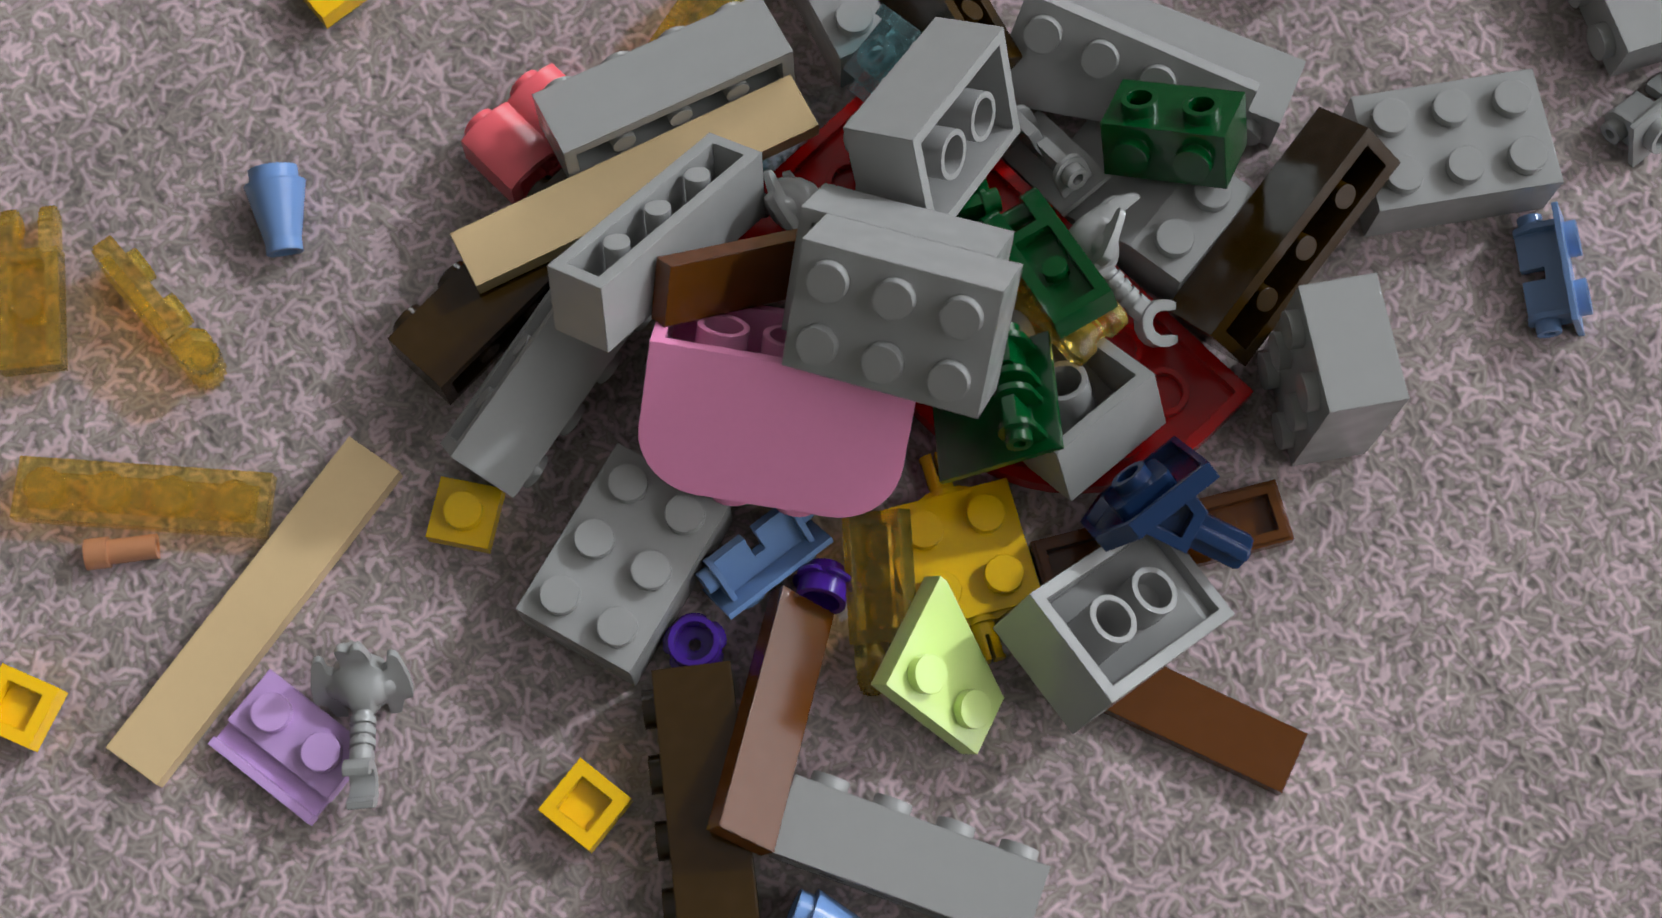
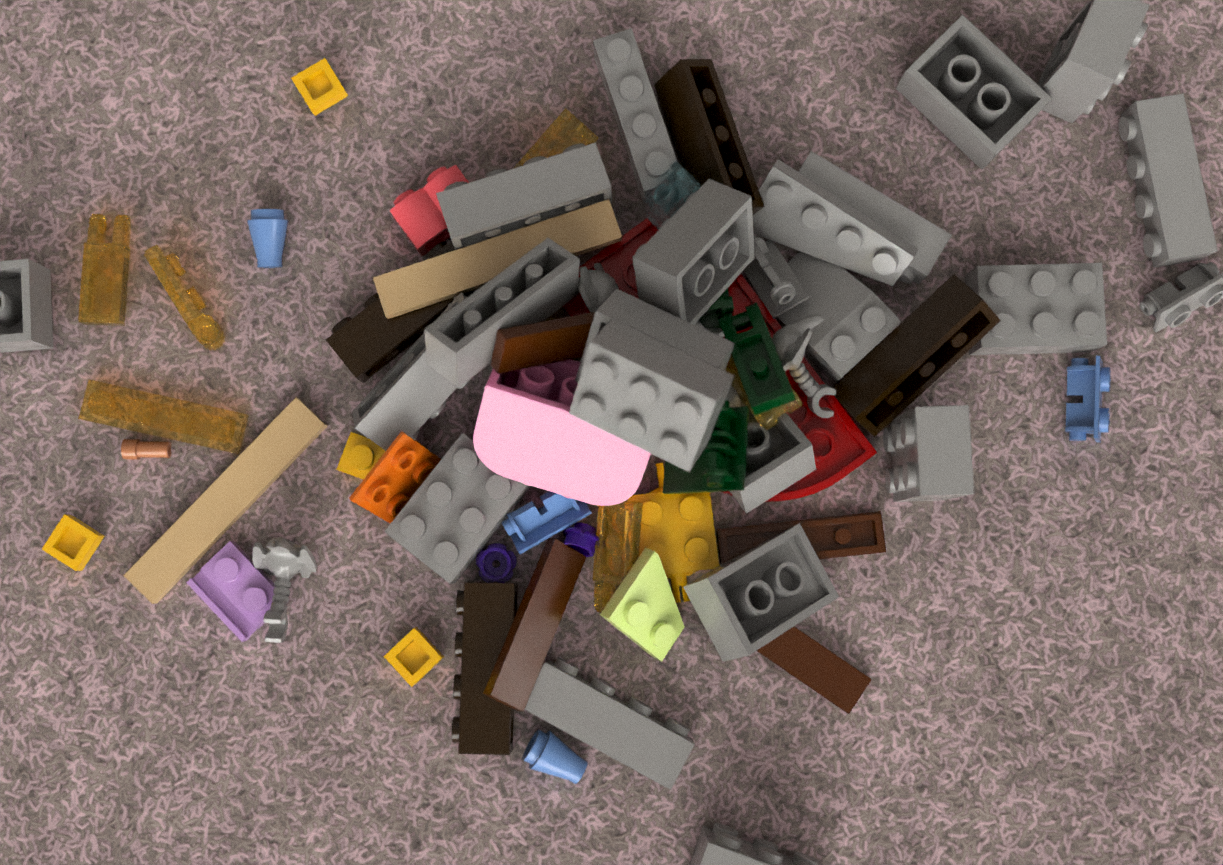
camera: 15 degrees right, 10 degrees up
(519, 527) = (395, 477): none -> orange hinge
(1162, 501) = (803, 523): dark blue piece -> none
(1174, 133) = (854, 277): dark green brick -> none

